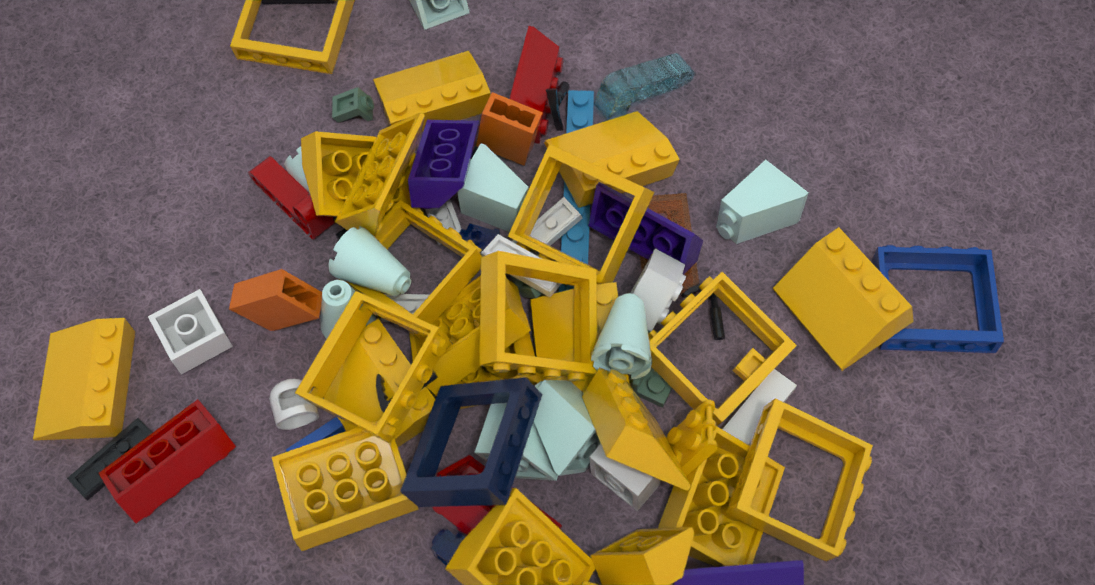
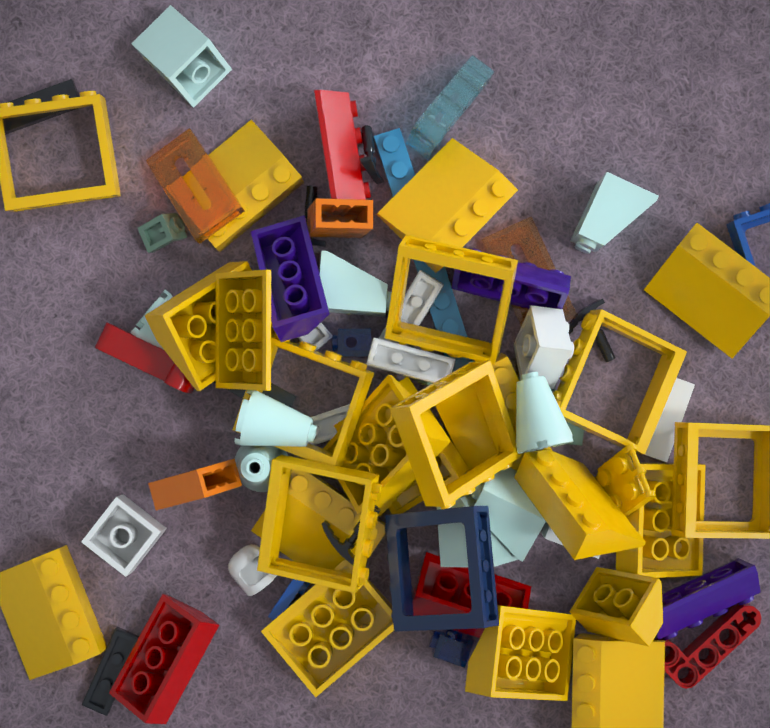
camera: 20 degrees left, 25 degrees up
(413, 87) = (224, 203): none -> clear orange piece
(749, 364) = (647, 382): yellow tile -> none

